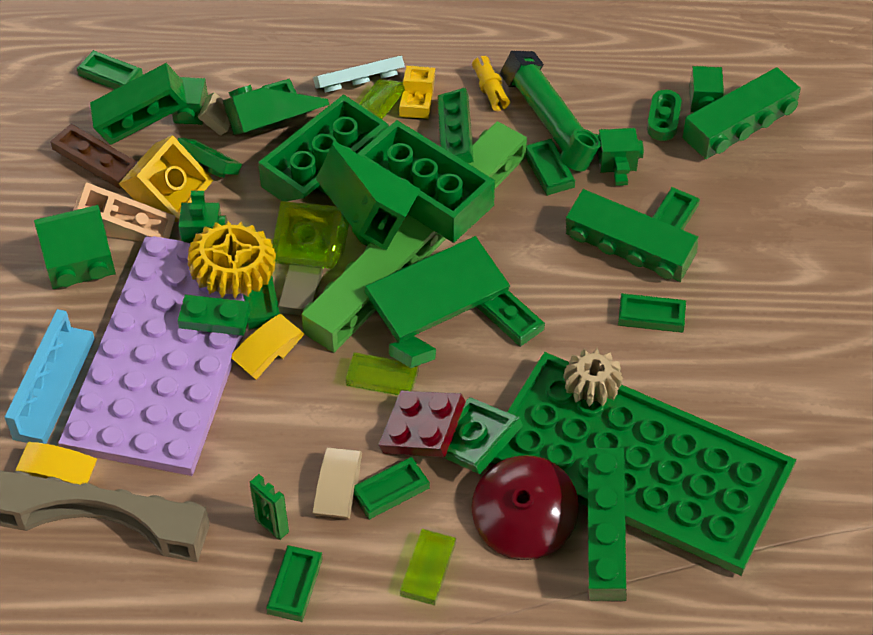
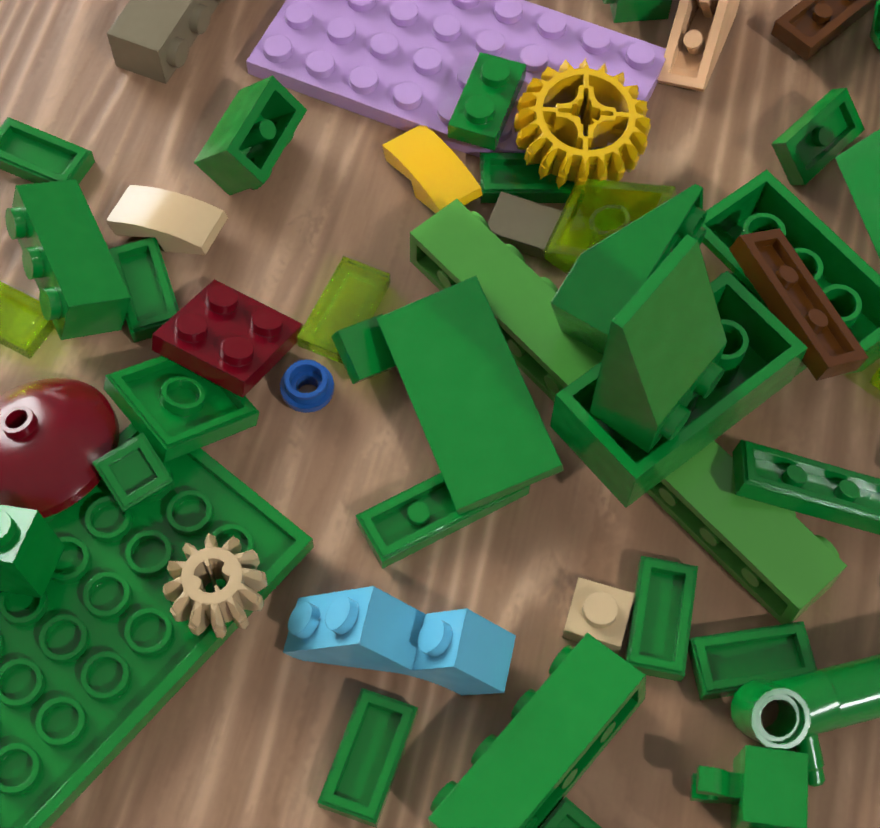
camera: 100 degrees right, 10 degrees up
(166, 177) = (770, 78): yellow slope -> none
(198, 215) = (677, 110): green brick -> none
(266, 441) = (251, 136): none -> green brick
(269, 505) = (140, 138): green tile -> none
(358, 133) = (798, 302): none -> reddish brown plate
(386, 523) = (67, 259): none -> green brick
(438, 156) = (661, 351): none -> green slope
(442, 373) = (301, 374): none -> blue plate
(534, 437) = (132, 472): none -> green tile
(537, 204) = (661, 618): none -> green tile
(544, 229) = (600, 612): none -> tan plate
(591, 302) = (384, 634): none -> medium azure arch

